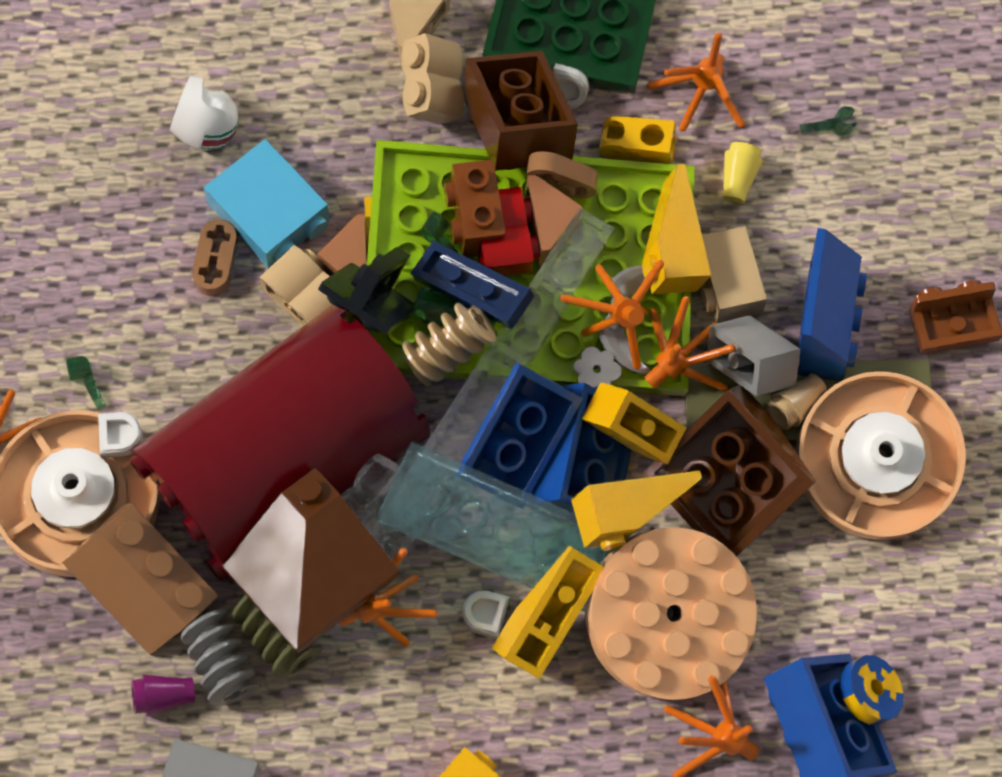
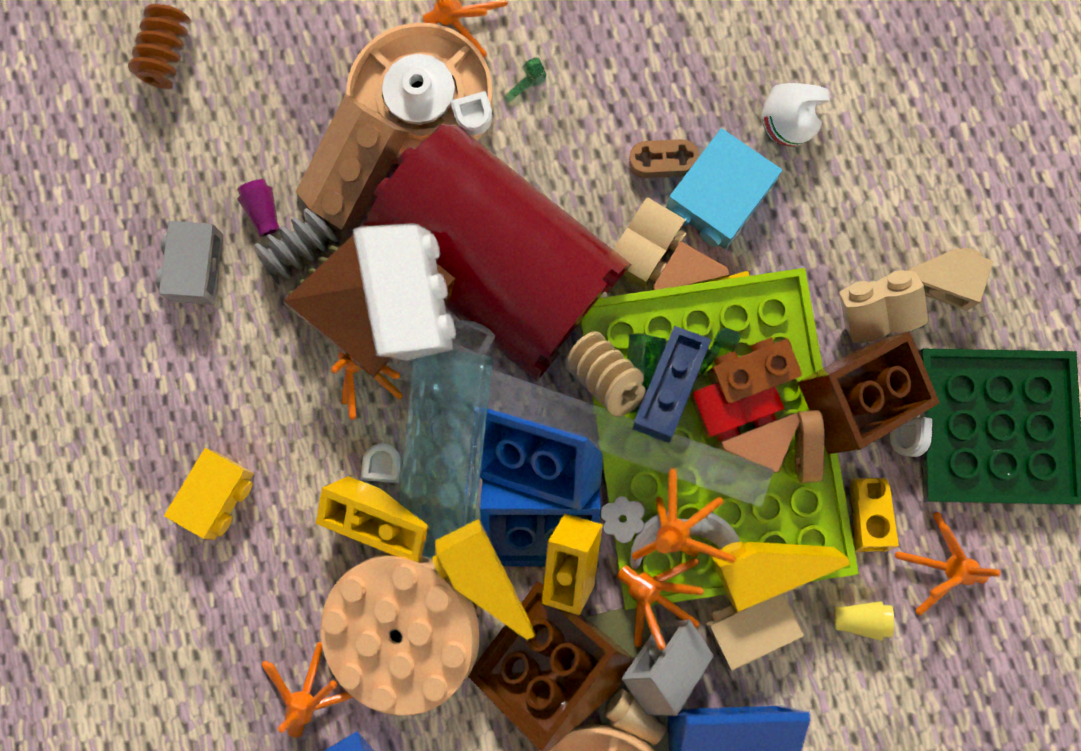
camera: 85 degrees right, 10 degrees up
(330, 497) = (404, 291): none -> white slope
(369, 291) = (640, 292): black bracket -> none
(835, 124) = (942, 706): clear green hand -> none

